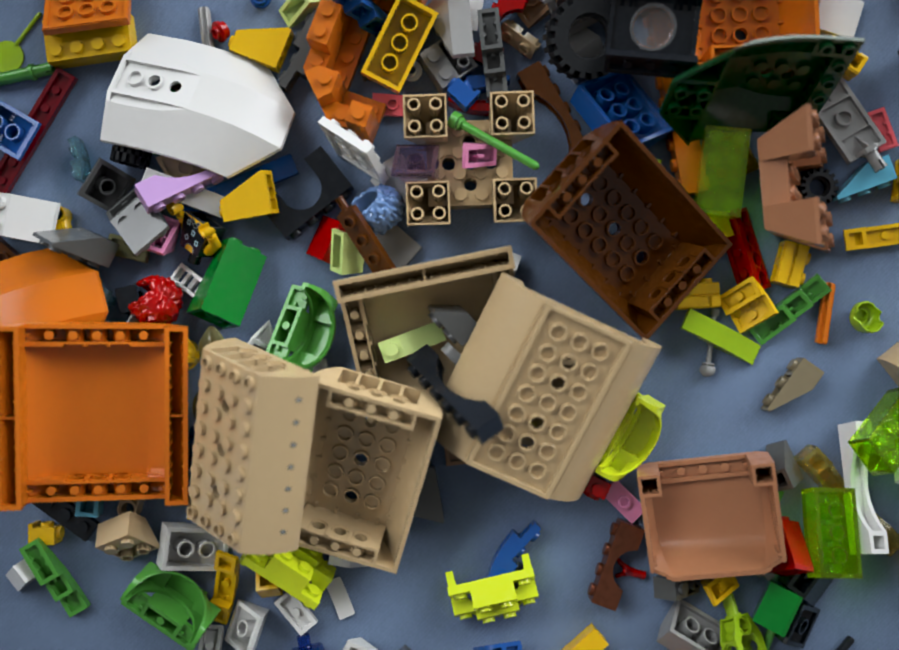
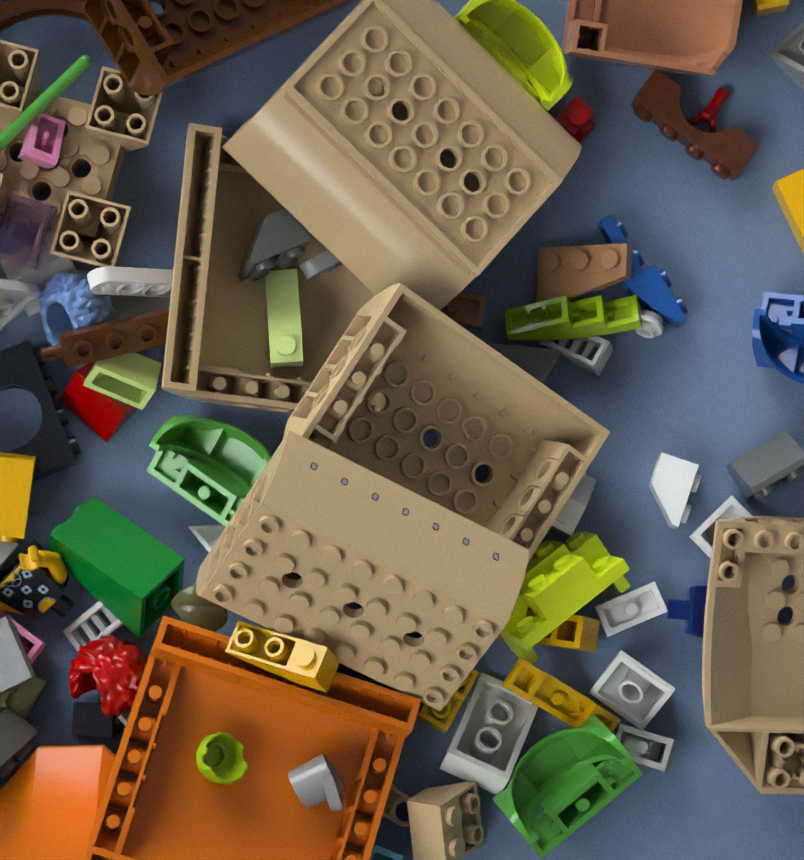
camera: 75 degrees left, 5 degrees down
(115, 389) = (221, 758): none -> lime hair
(119, 453) = (317, 782): none -> light grey piece
(183, 411) = (284, 655): none -> yellow slope
(340, 598) = (632, 540): white sticker -> none
(380, 616) = (671, 487): none -> white slope
(404, 238) = (130, 281): none -> white beam
(448, 546) = (597, 363): none -> white slope
(467, 524) = (572, 320): none -> lime slope
(477, 416) = (413, 236): black arch -> none
(479, 570) = (651, 324): none -> white plate
(493, 595) = (685, 310): neon yellow piece -> none
(499, 518) = (581, 269): none -> medium nougat wing
(624, 502) = (609, 88): bright pink plate -> none
(672, 590) = (750, 50): dark grey slope -> none

